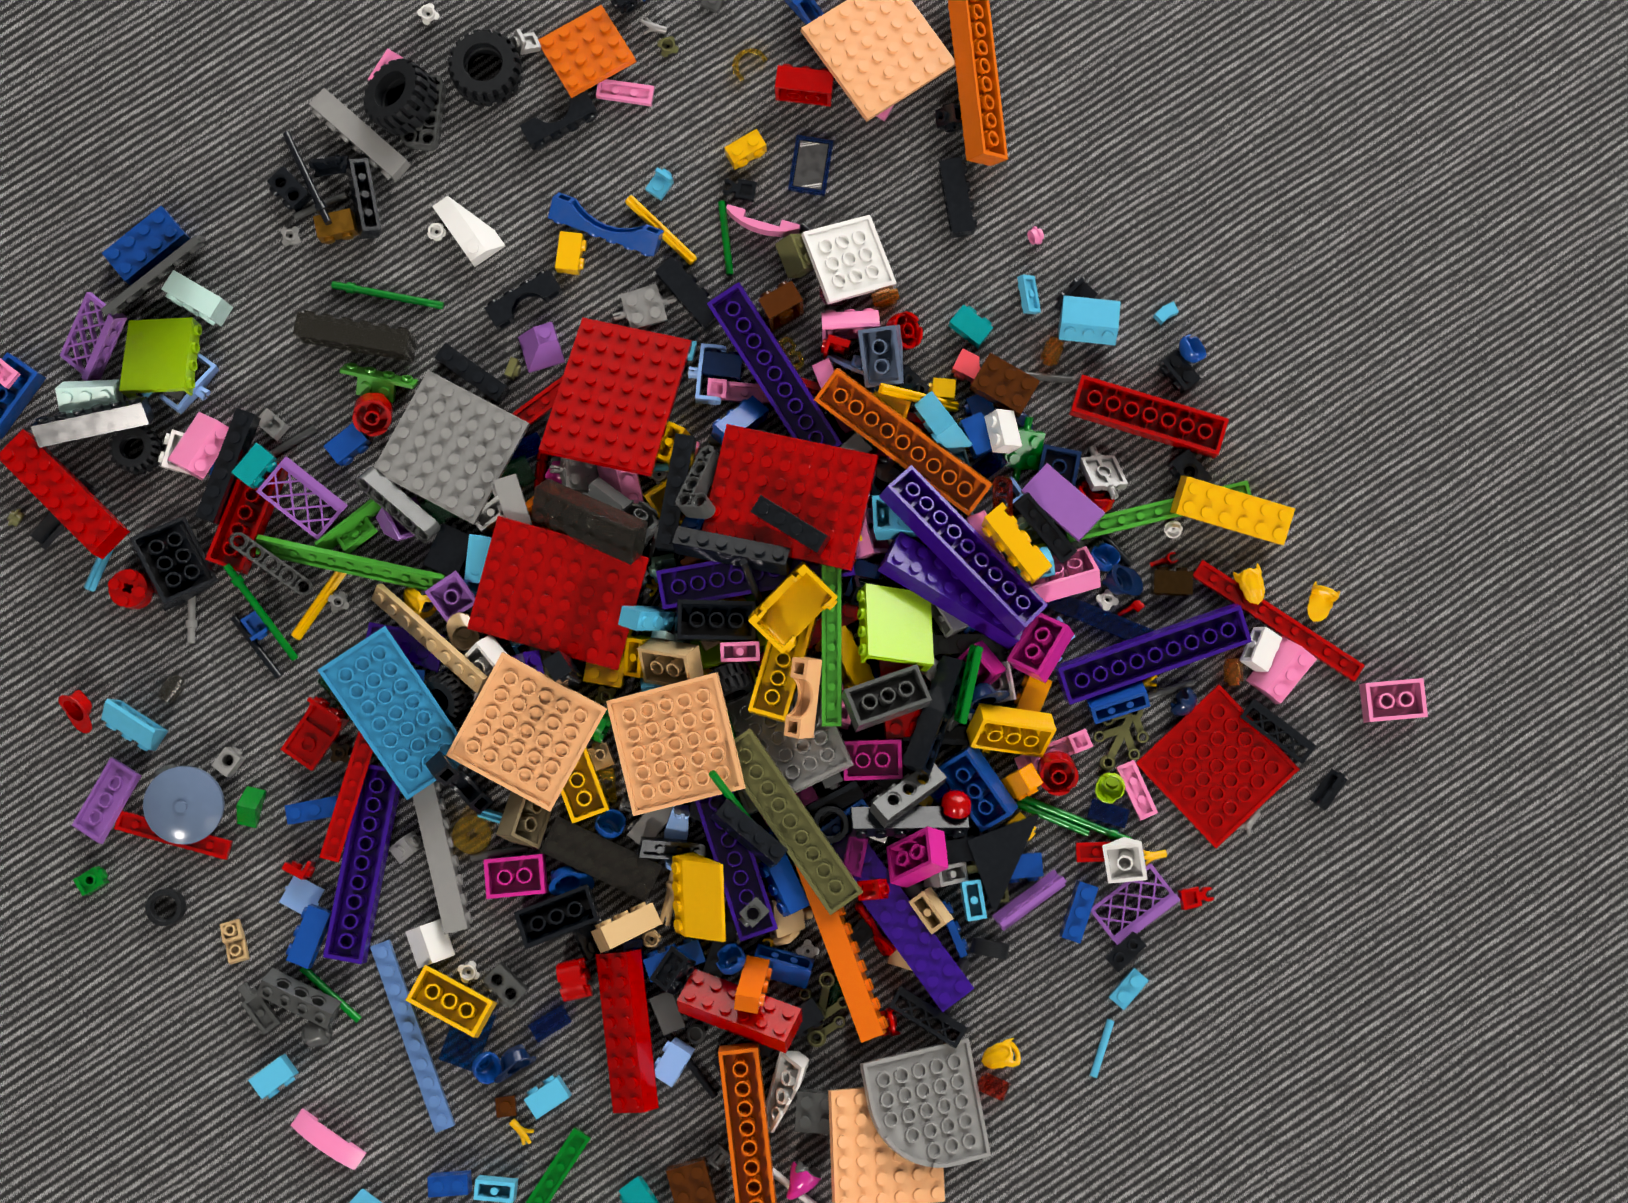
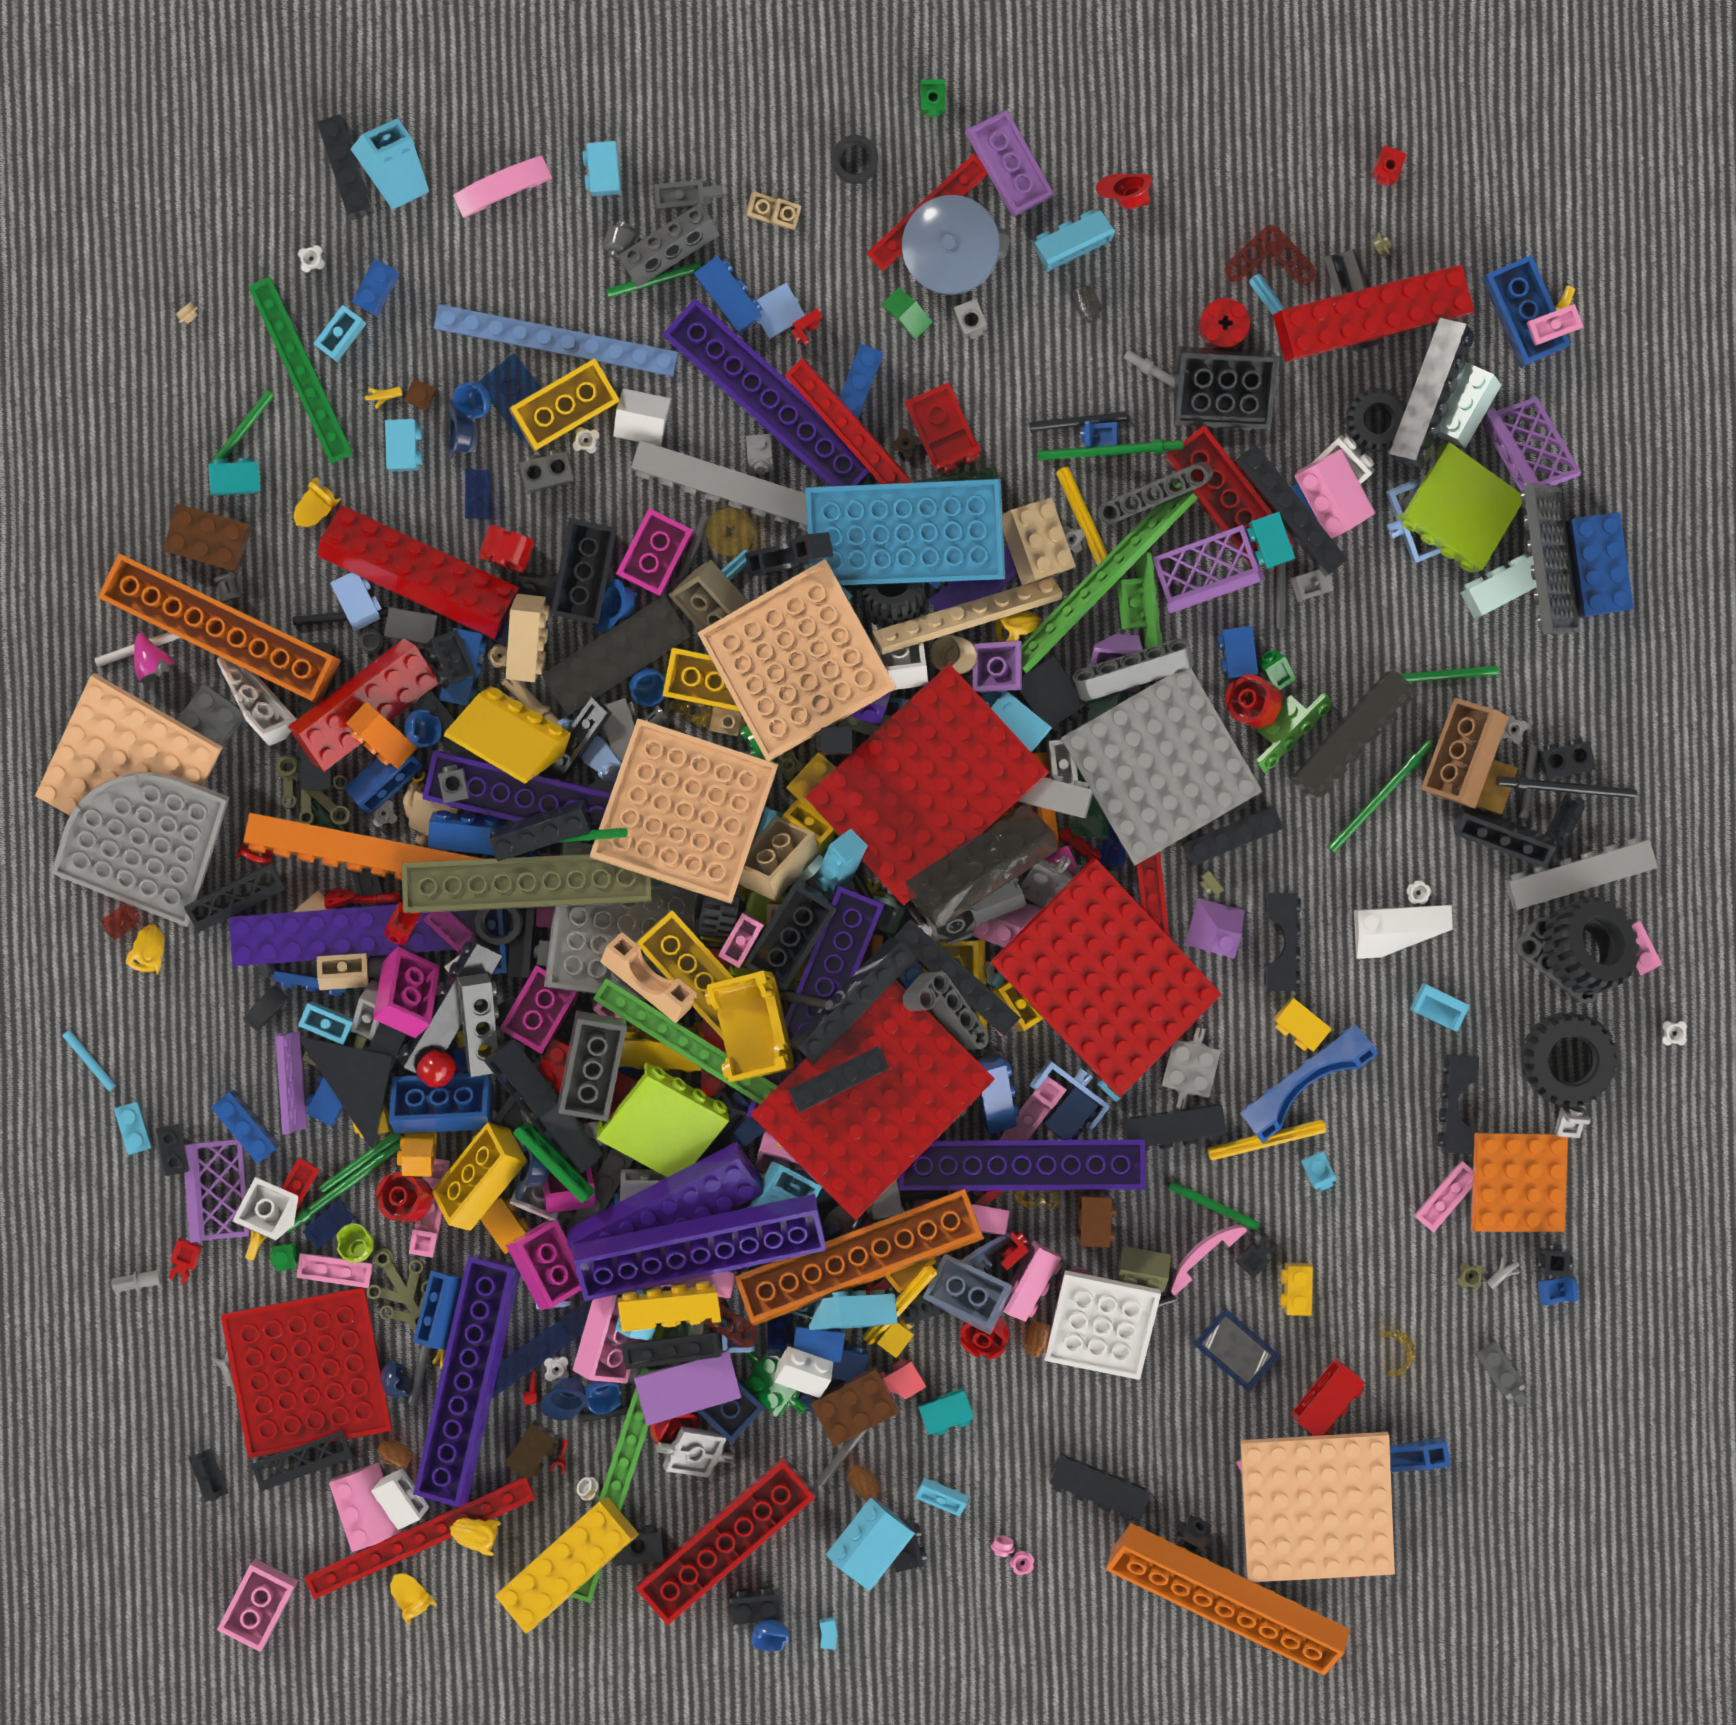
camera: 115 degrees right, 5 degrees up
(62, 587) = (1274, 249): none -> clear red beam
(276, 295) = (1451, 674): none -> green bar
(323, 256) = (1464, 752): none -> medium nougat brick
(342, 413) = (1276, 669): none -> green bracket
(351, 621) = (1037, 541): none -> tan brick
(503, 171) = (1439, 1007): none -> medium azure panel
(625, 1132) = (314, 504): none -> yellow piece
(1038, 212) = (1022, 1569): none -> bright pink plate
(1149, 830) = (284, 1256): none -> green brick
(1230, 920) = (136, 1281): none -> light grey axle

